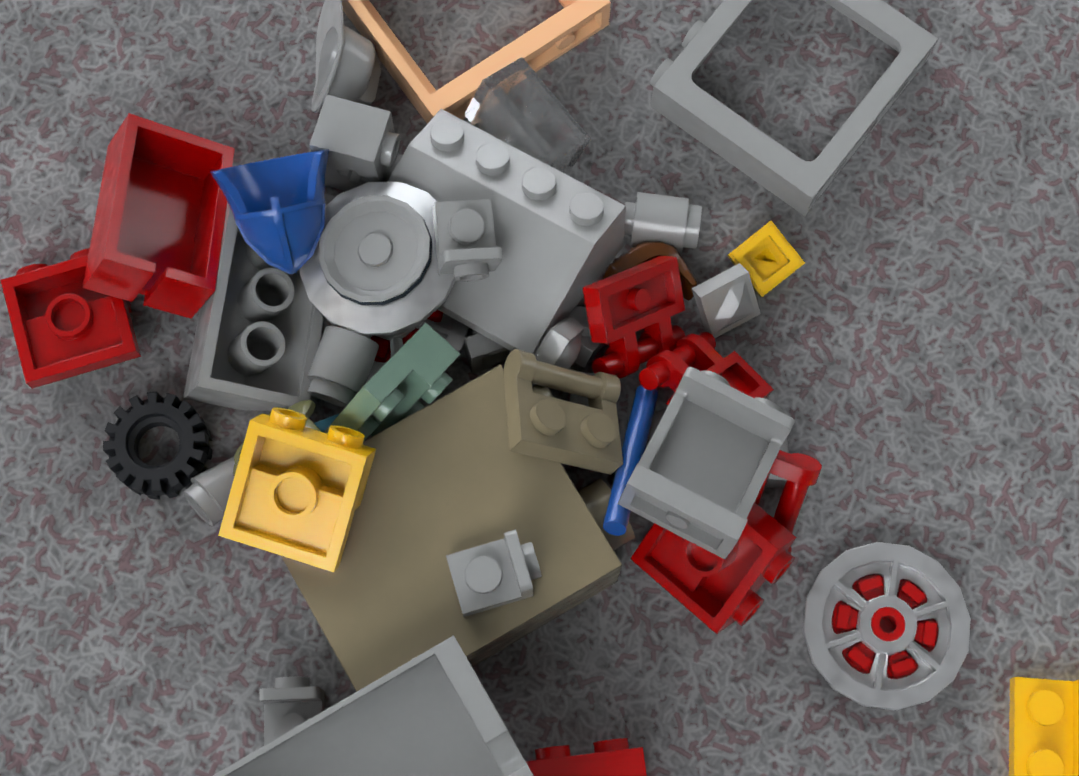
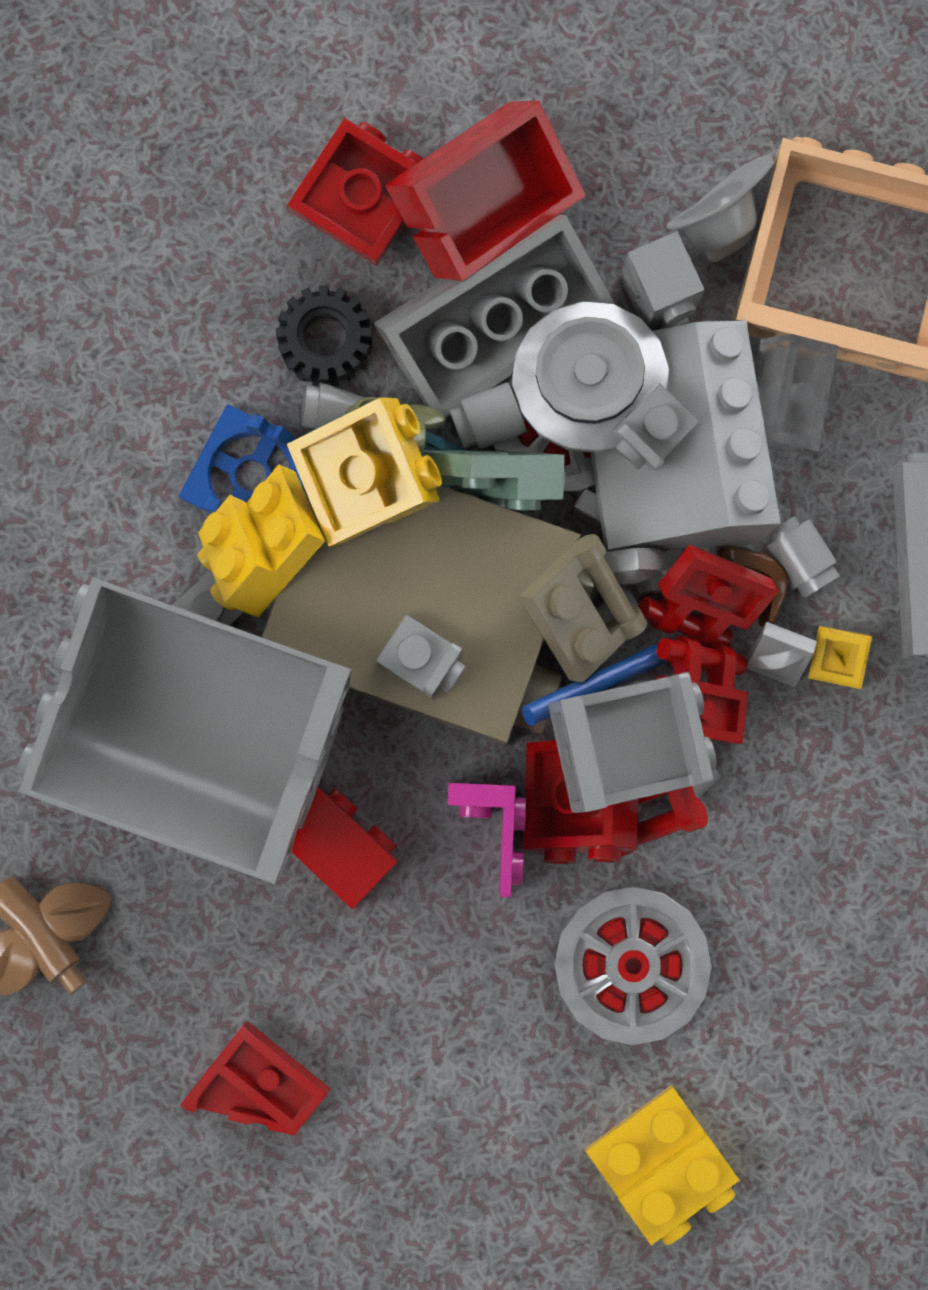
camera: 50 degrees right, 10 degrees up
(161, 585) = (230, 426): none -> blue piece
(279, 206) = (564, 269): blue helmet -> none
(279, 633) = (259, 542): none -> yellow plate
(683, 617) = (477, 802): none -> dark pink bracket

